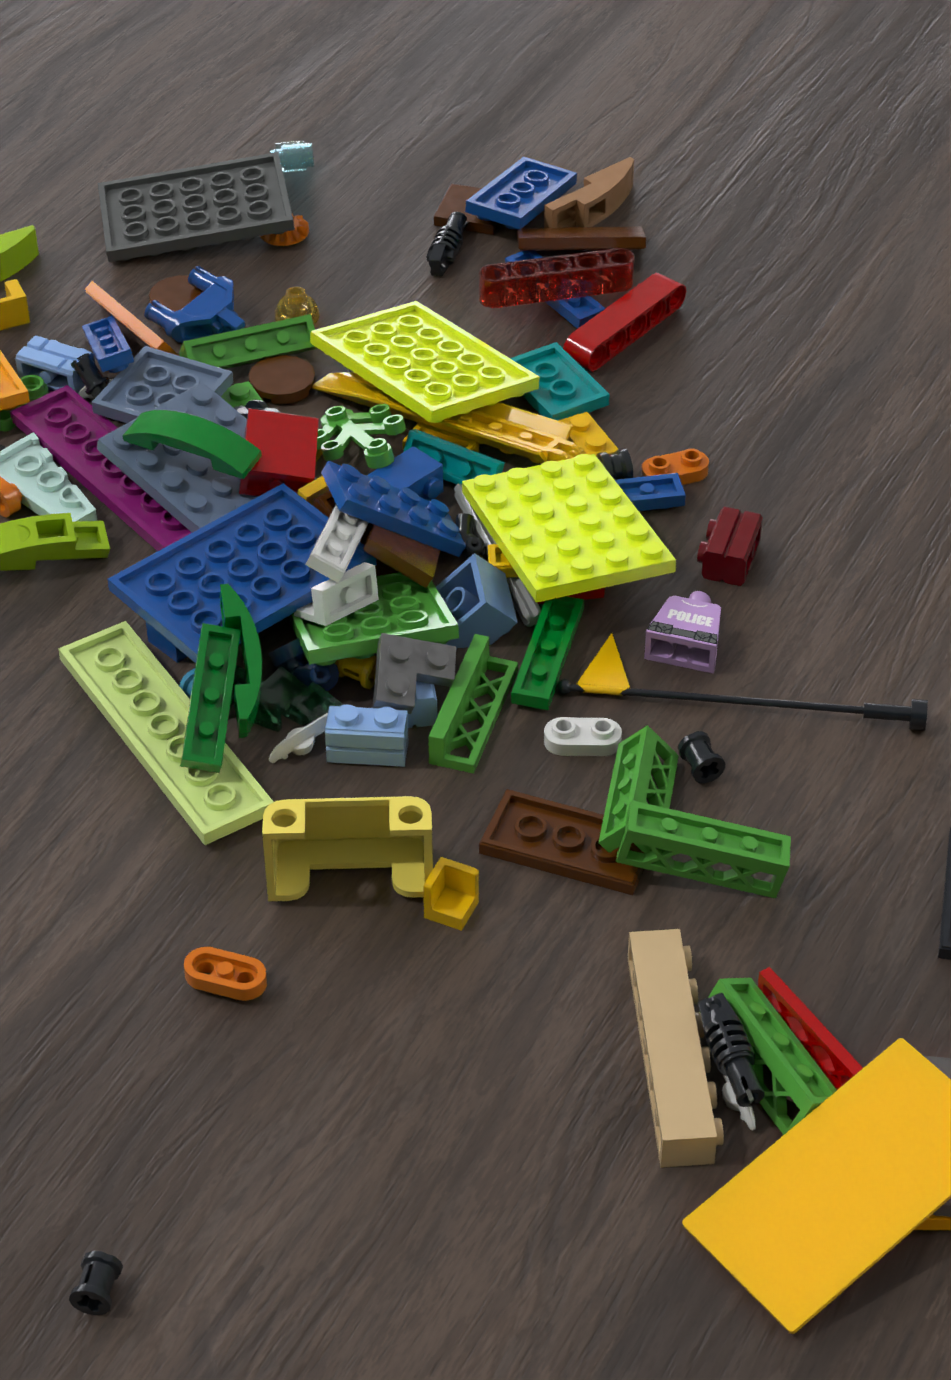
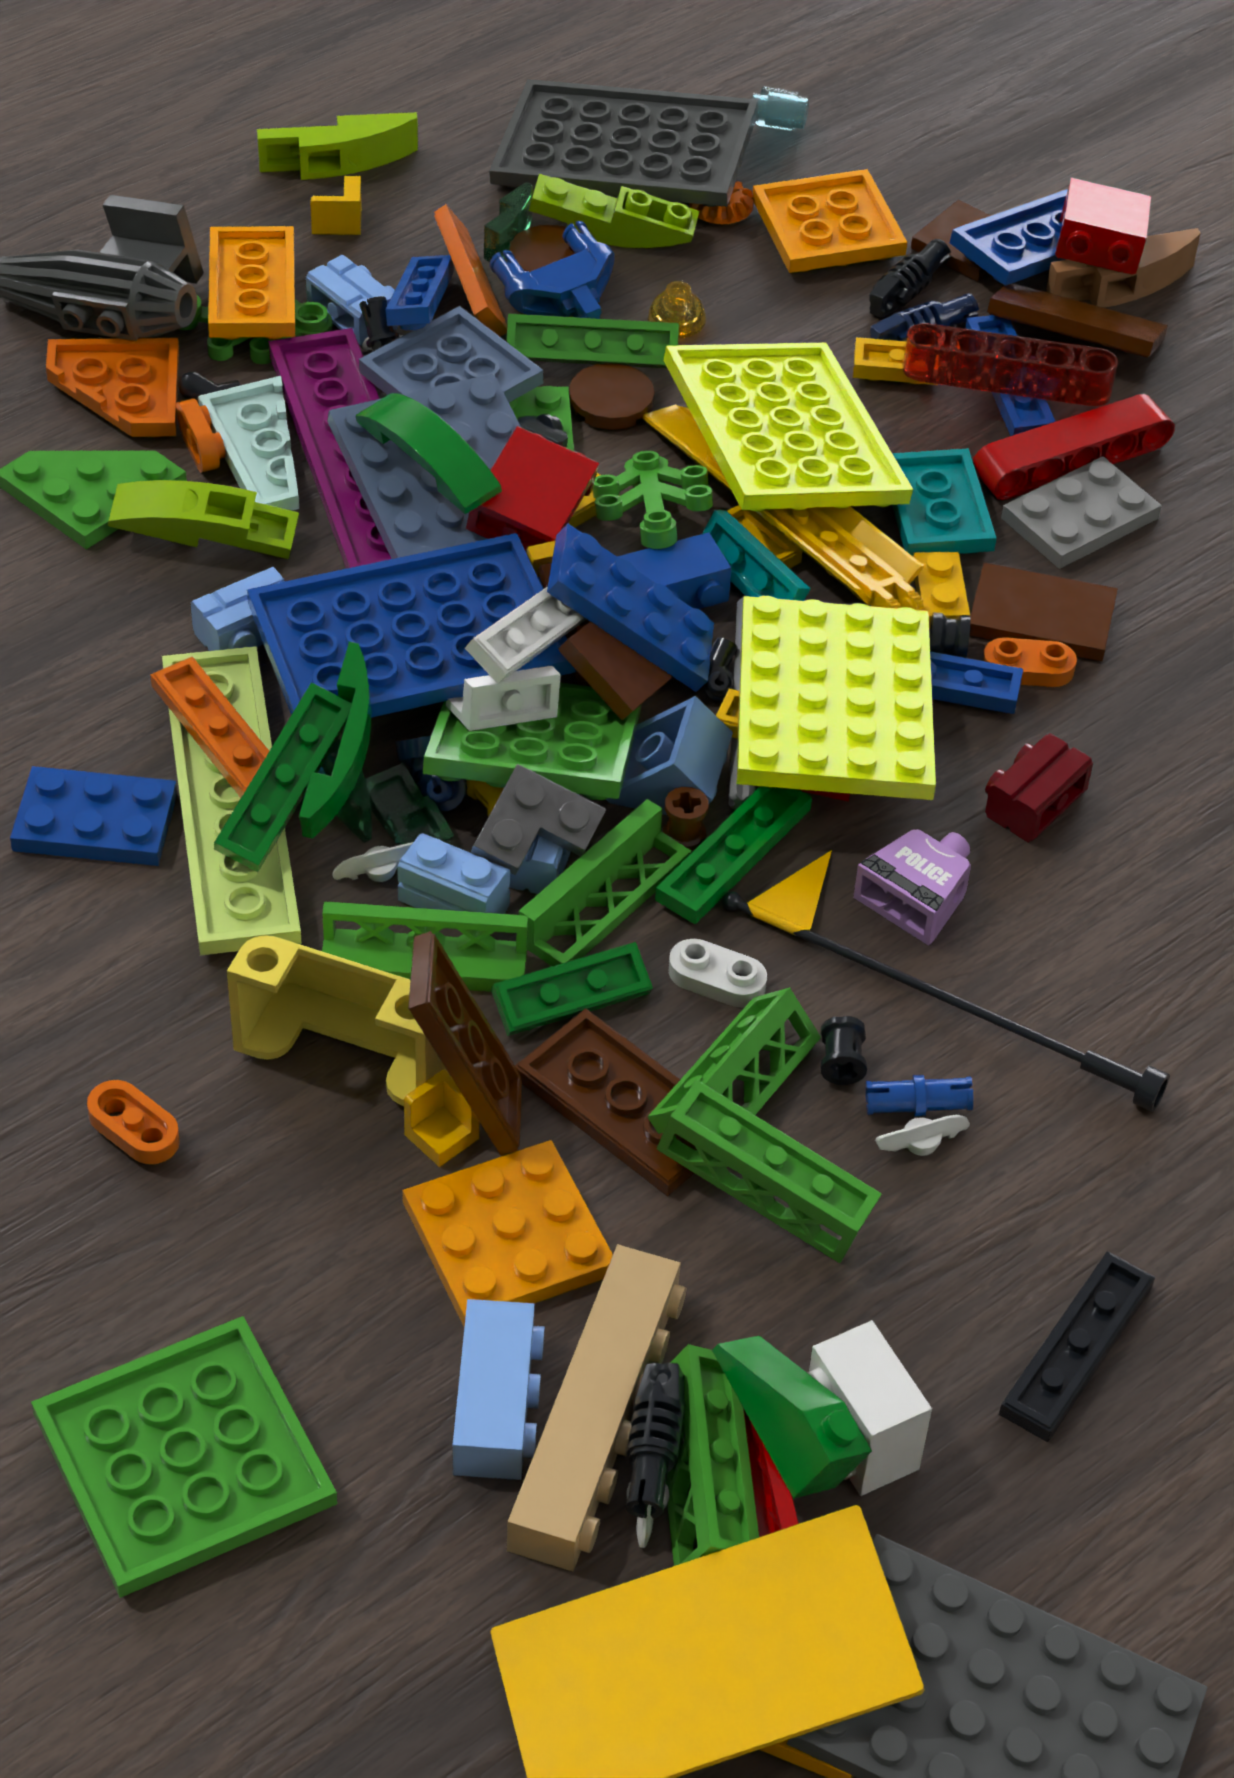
camera: 20 degrees right, 5 degrees up
(68, 775) = (94, 816): none -> blue plate
(94, 606) = (224, 617): none -> light blue brick
(129, 683) = (211, 721): none -> orange tile
(140, 283) = (511, 220): none -> clear green slope
(227, 256) = (624, 221): none -> lime slope
(369, 221) = (829, 221): none -> light orange plate
(396, 1186) = (183, 1455): none -> bright green plate
(405, 778) = (474, 954): none -> bright green fence
(457, 828) = (465, 1042): none -> reddish brown tile
(461, 302) = (880, 360): none -> yellow plate
(466, 275) = (931, 312): none -> dark blue hinge
(488, 779) = (570, 988): none -> green tile
(504, 636) = (686, 812): none -> reddish brown bush
(538, 956) = (509, 1229): none -> light orange plate
(570, 170) = (1103, 226): none -> panel
(596, 1060) = (497, 1390): none -> light blue brick
(652, 363) = (1081, 512): none -> light grey plate
(665, 431) = (1042, 608): none -> reddish brown tile
(768, 769) = (919, 1095): none -> blue pin
(785, 795) = (923, 1134): none -> white piece
(827, 997) = (795, 1416): none -> green slope
(860, 978) = (880, 1398): none -> white brick

